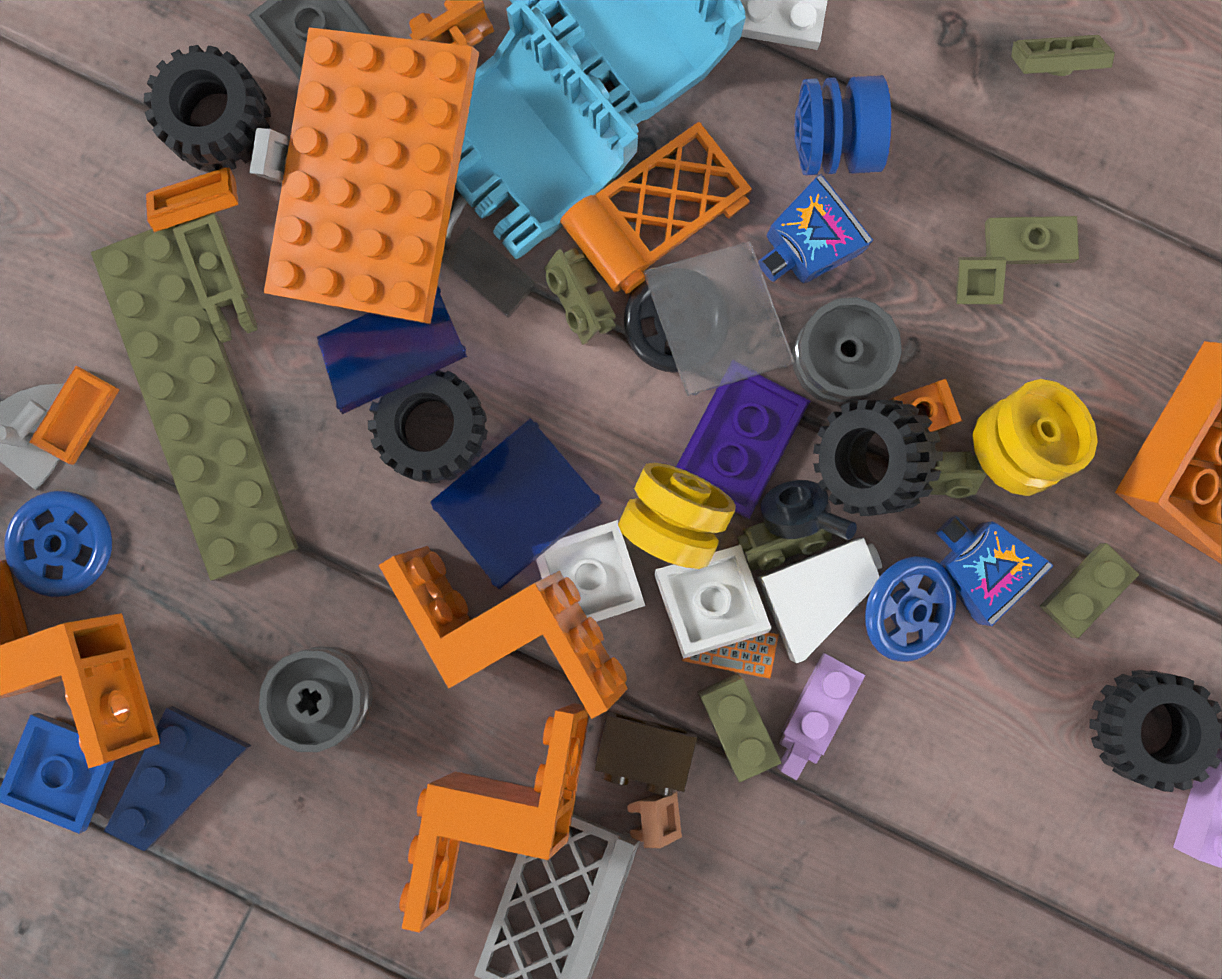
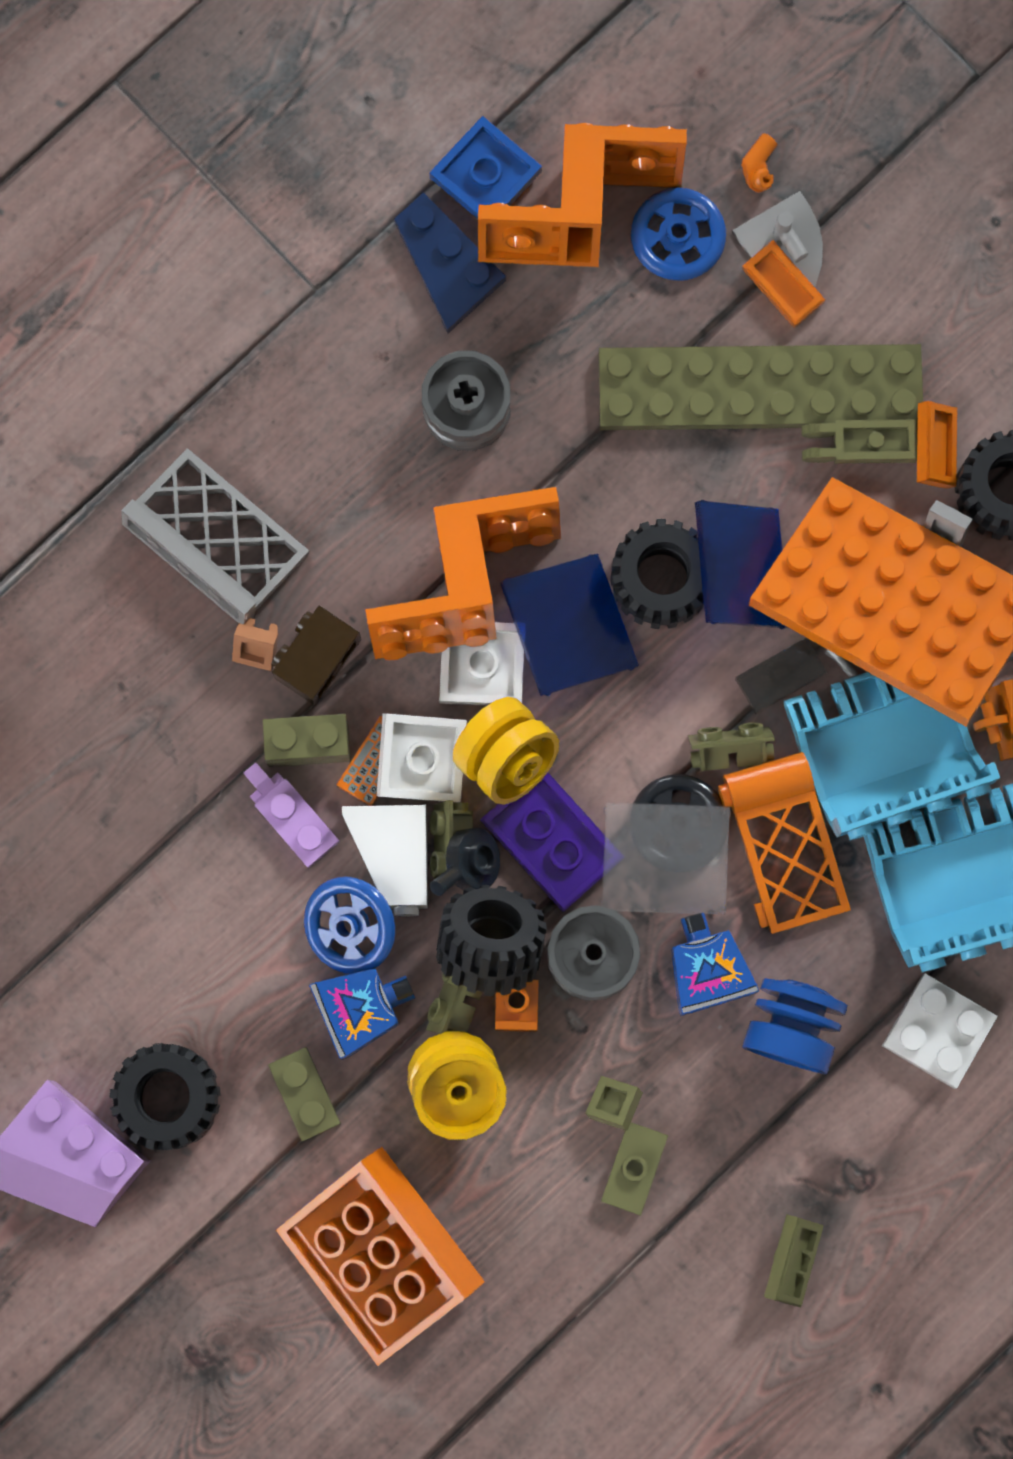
camera: 110 degrees right, 5 degrees down
(493, 816) = (315, 510): orange bracket -> none

